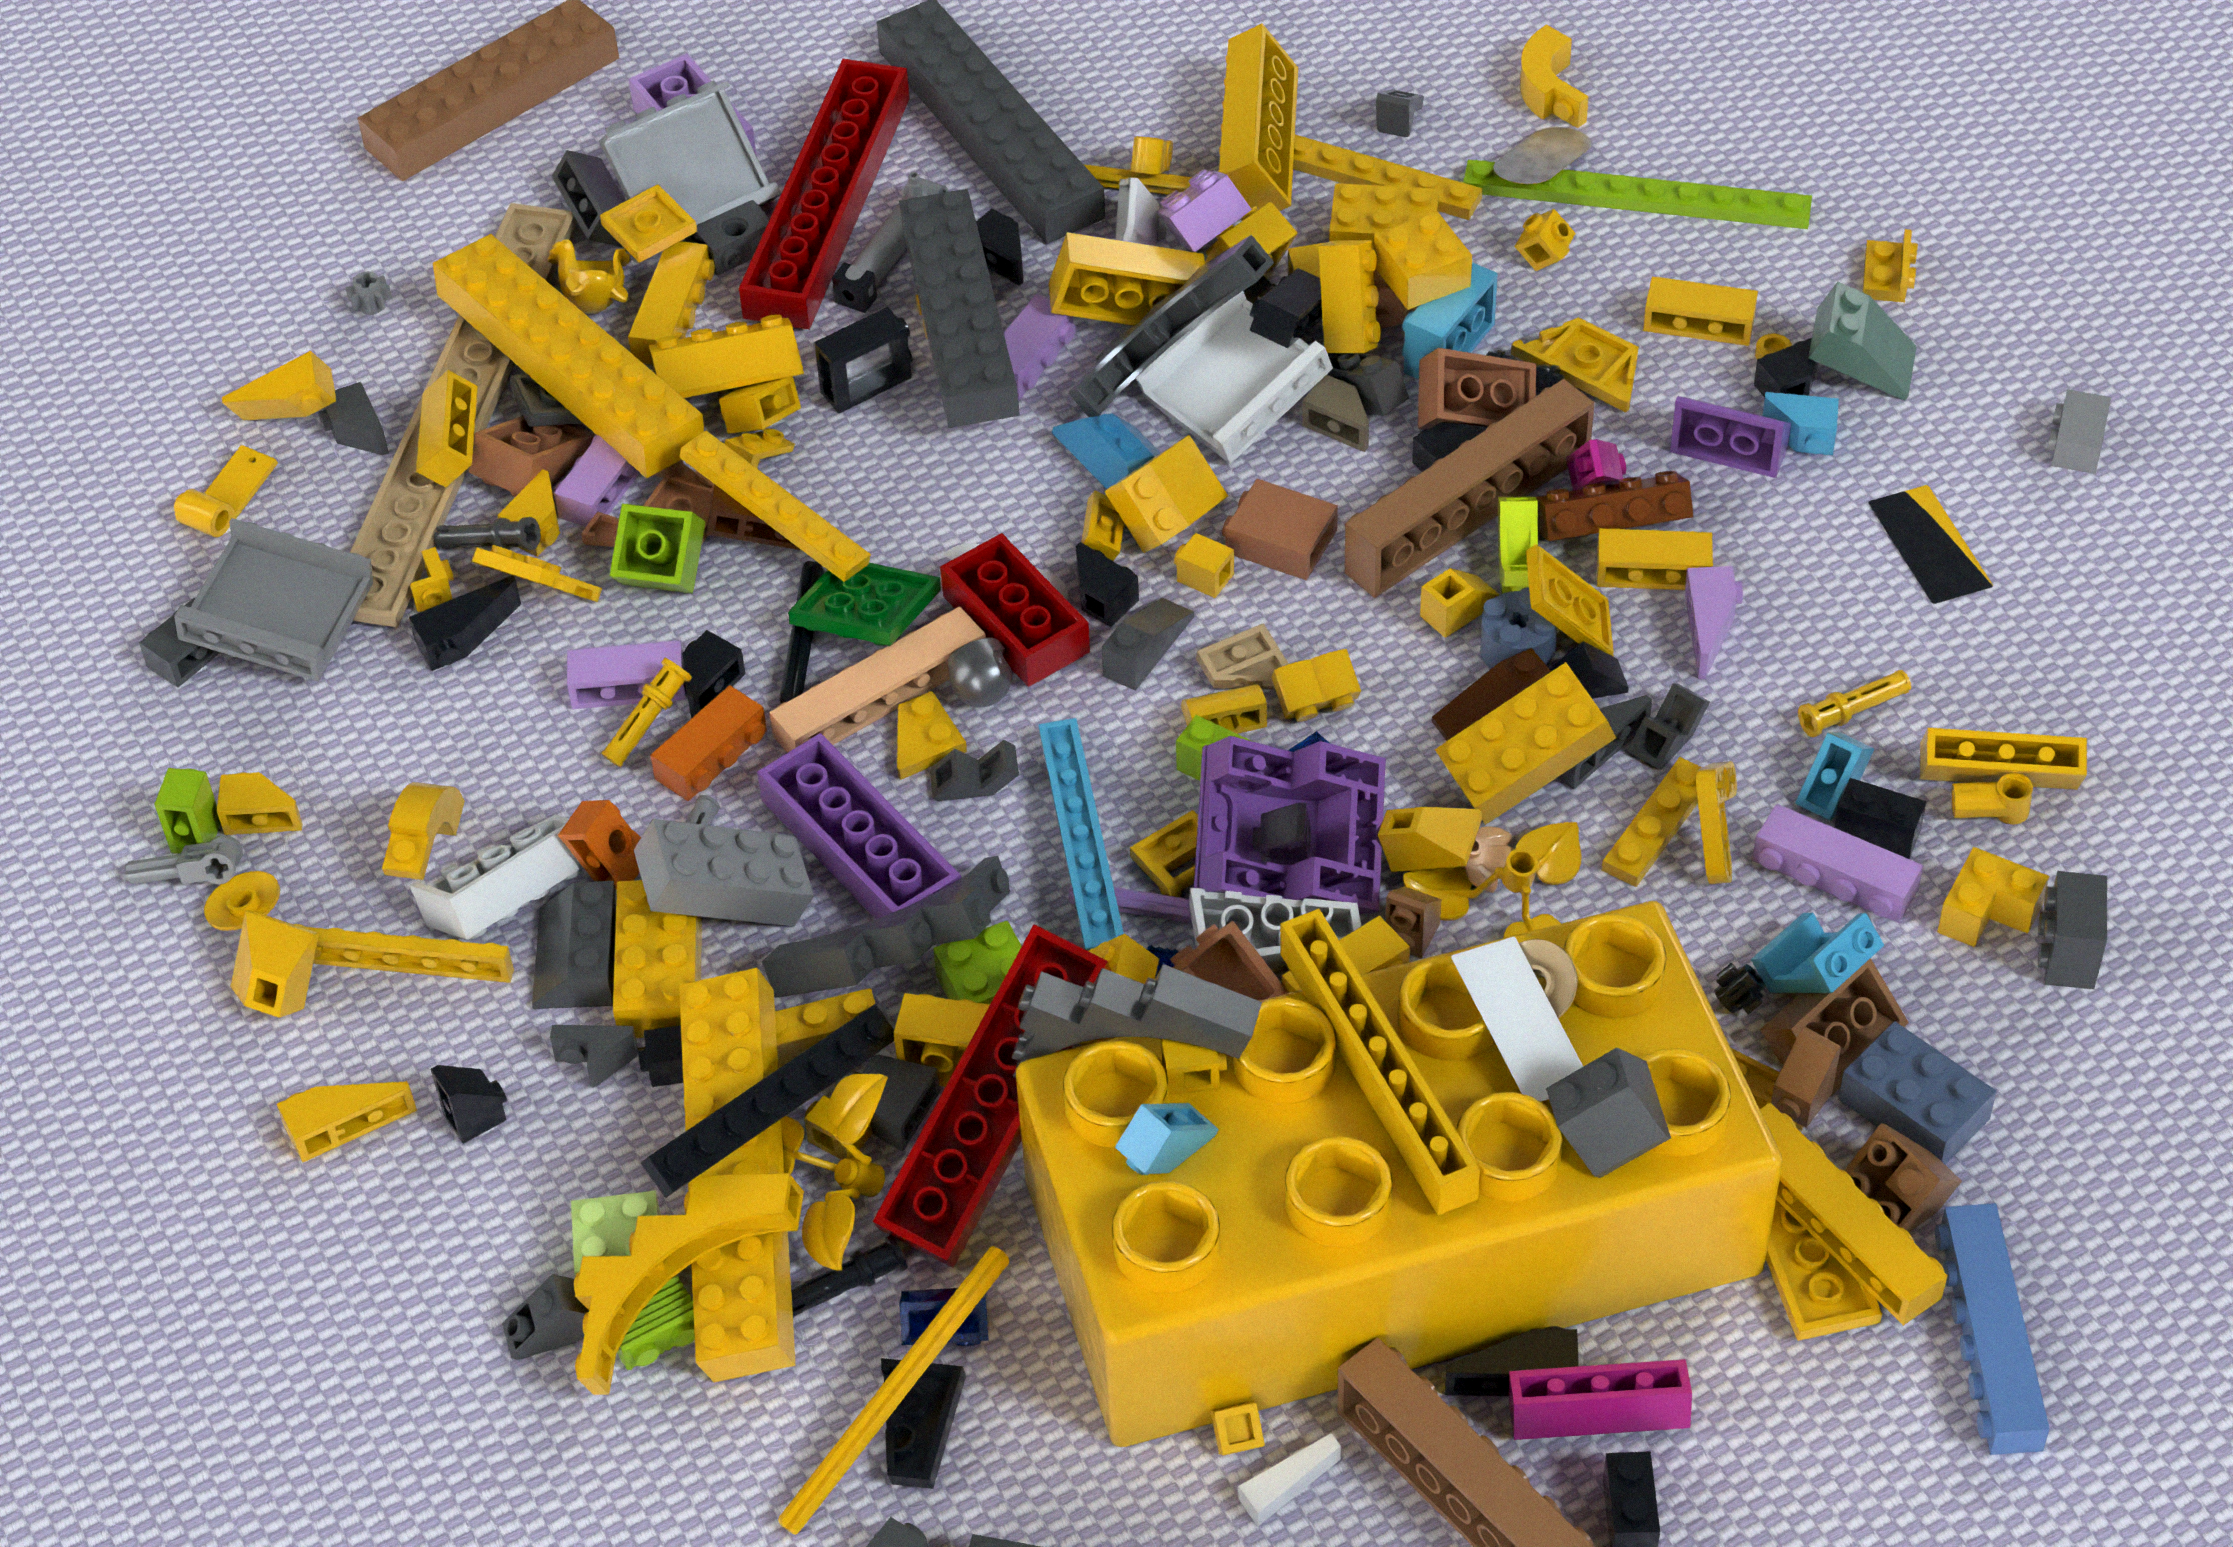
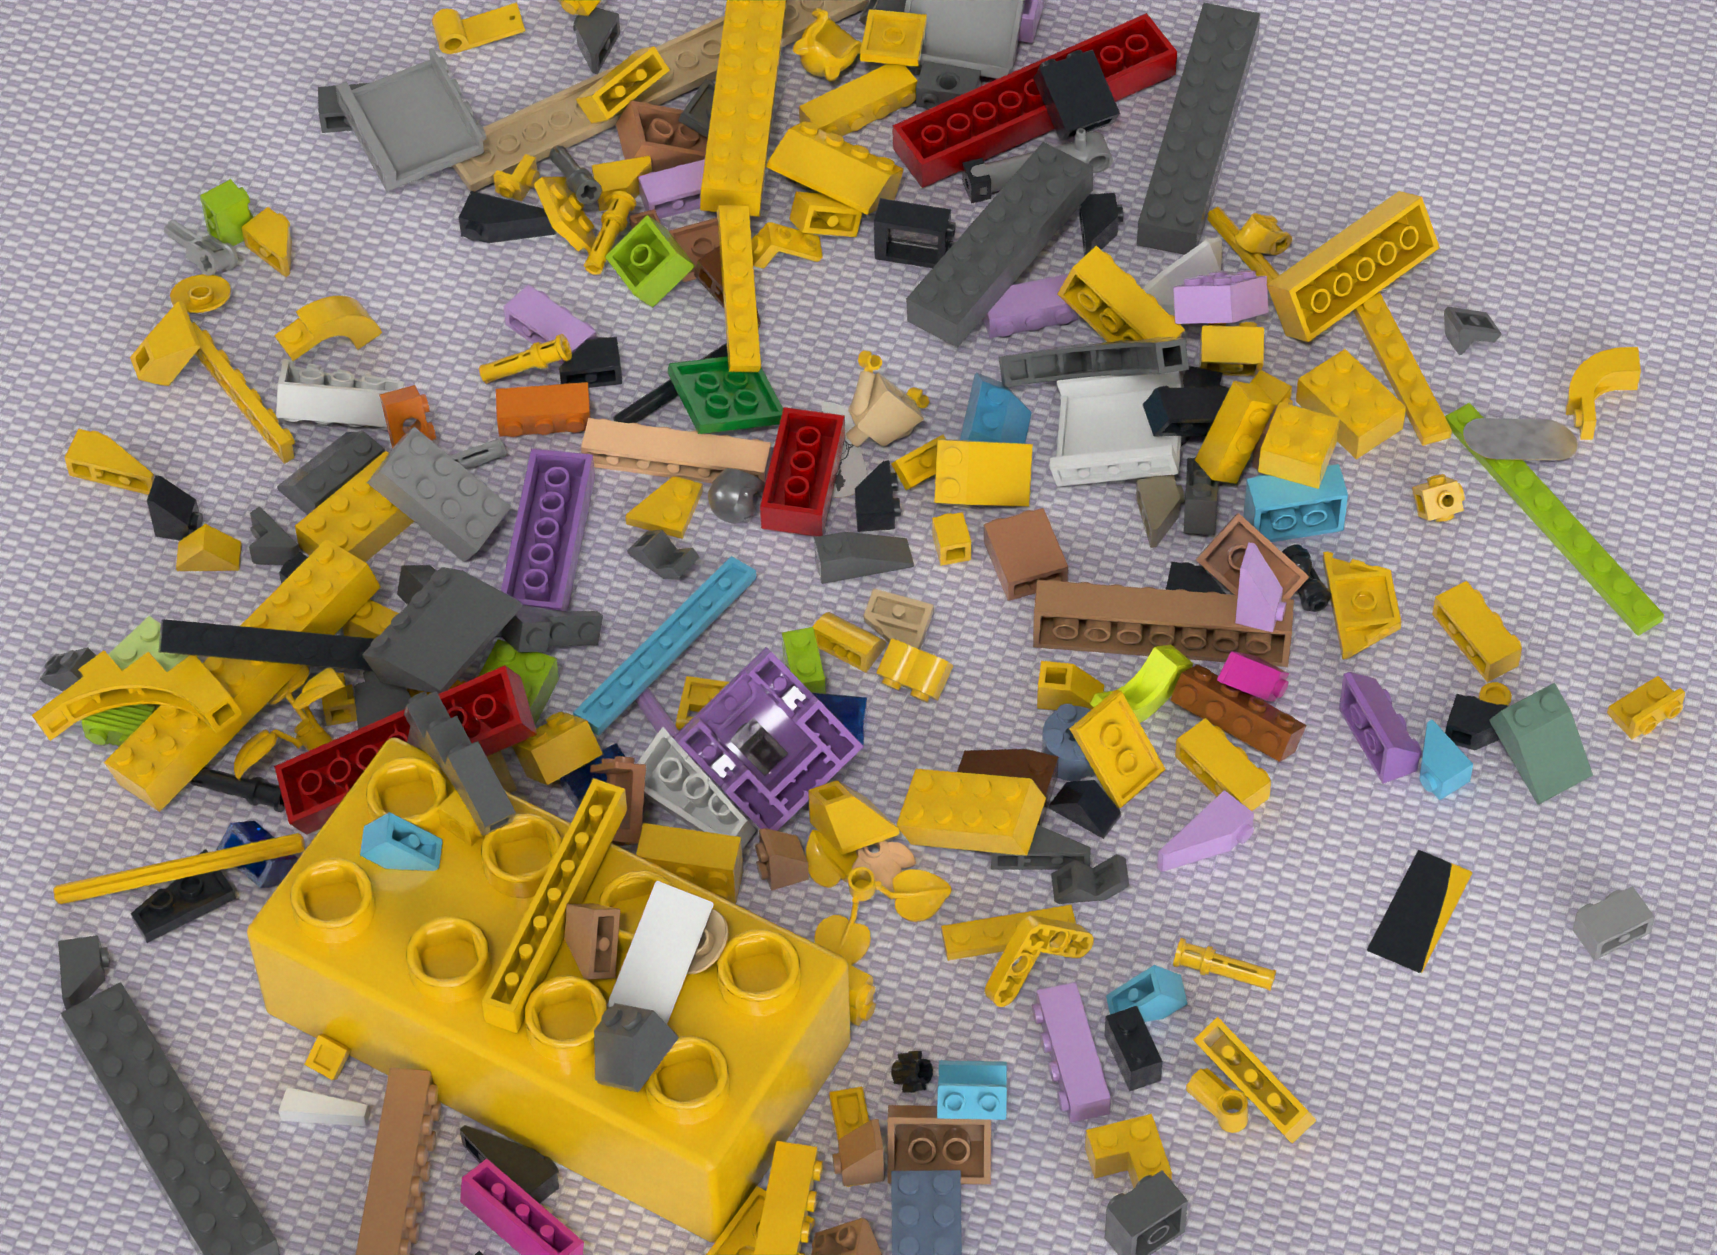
camera: 45 degrees right, 5 degrees up
(537, 1111) = (208, 551): none -> yellow slope
(601, 585) = (612, 223): none -> yellow pin
(872, 151) = (1076, 94): none -> black brick
(910, 964) = (440, 632): none -> dark grey slope
(1022, 503) = (881, 407): none -> tan torso
(1450, 1053) = (593, 938): none -> medium nougat slope
(1551, 387) = (1258, 593): none -> lavender slope

